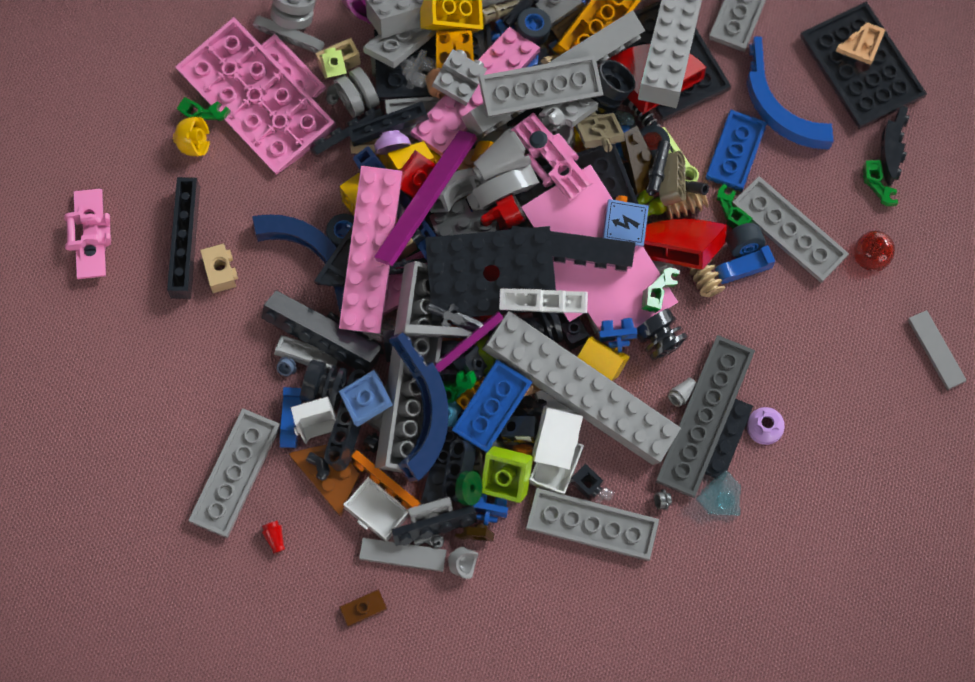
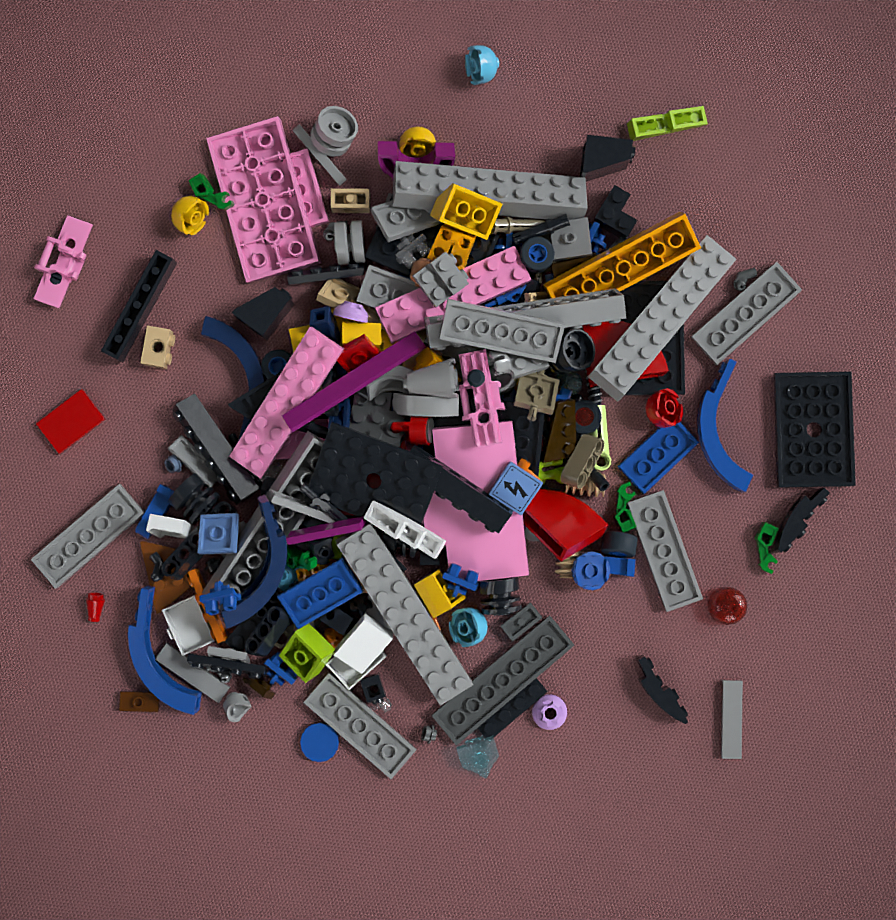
camera: 25 degrees right, 15 degrees up
(165, 375) = (71, 421): none -> red tile
(306, 188) = (265, 311): none -> black slope
(332, 63) = (339, 208): yellowish green brick -> none
(383, 580) = (148, 668): none -> blue arch
(393, 121) = (358, 291): black plate -> none
(398, 450) = (220, 595): none -> blue hips
(469, 488) = (268, 651): dark green piece -> none
(561, 560) = (319, 742): none -> blue tile
(646, 378) = (468, 626): none -> medium azure cylinder
(656, 175) = (568, 454): black pin -> none
(664, 280) = (523, 552): piece -> none
(681, 393) = (494, 649): light grey cone -> none
(693, 354) = (521, 621): none -> dark grey plate
(719, 106) = (664, 409): none -> red cylinder
(732, 273) = (590, 570): none -> blue tile
(863, 44) = (824, 413): light nougat wing -> none
(864, 360) = (664, 697): none -> black slope

